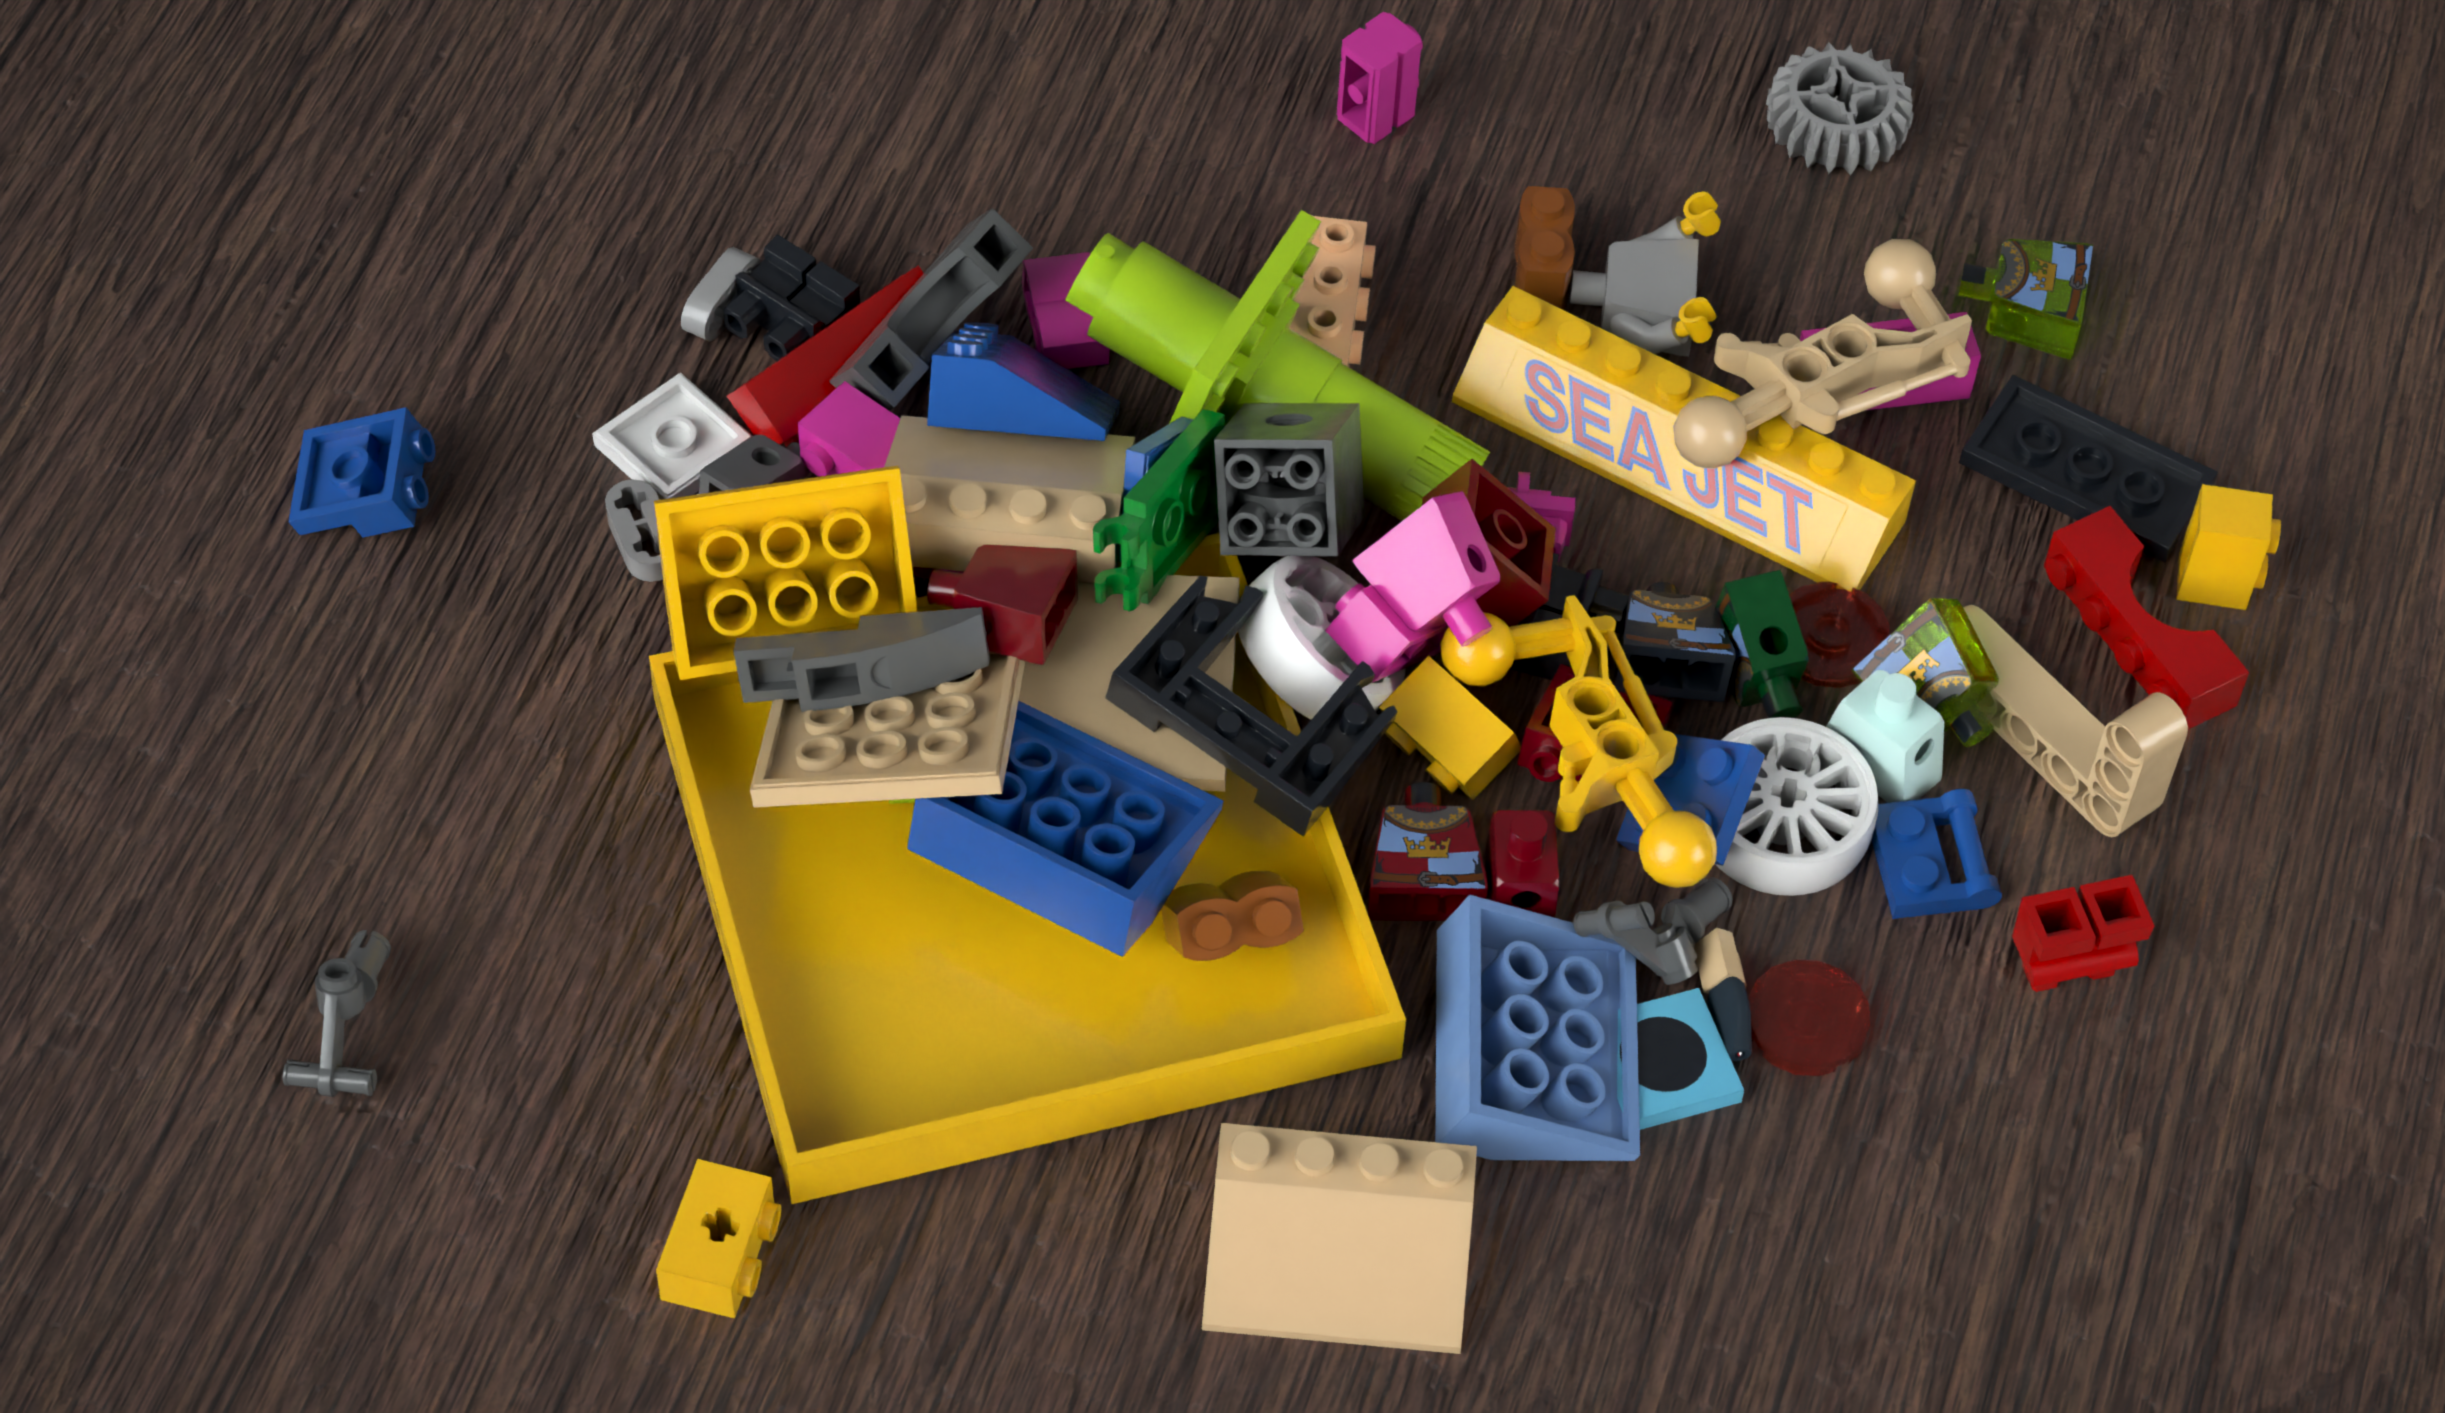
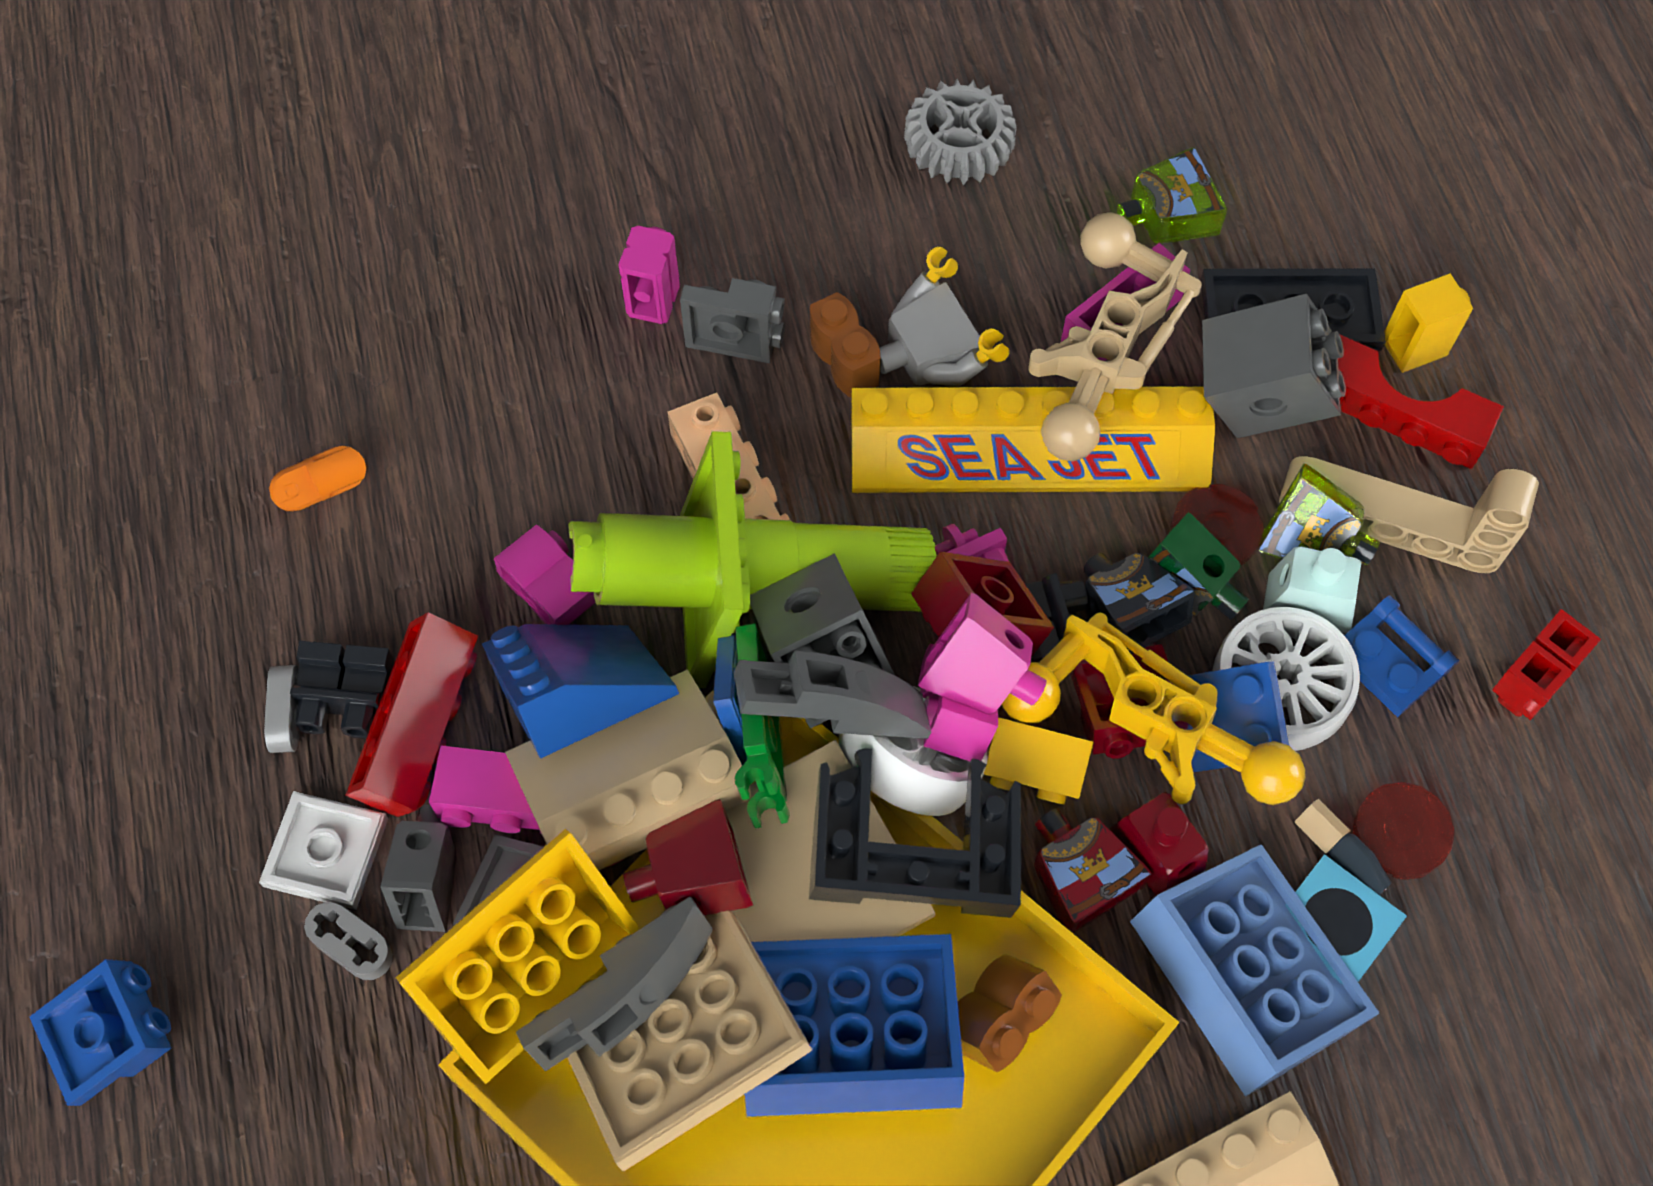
camera: 30 degrees left, 10 degrees up
(901, 105) = (317, 478): none -> orange arm
(934, 306) = (458, 697): dark grey arch -> none
(1274, 519) = (833, 688): none -> dark grey slope
(1437, 164) = (734, 323): none -> dark grey plate
(1670, 946) = (1286, 841): dark grey pin -> none
(1995, 491) = (1272, 366): none -> dark grey brick

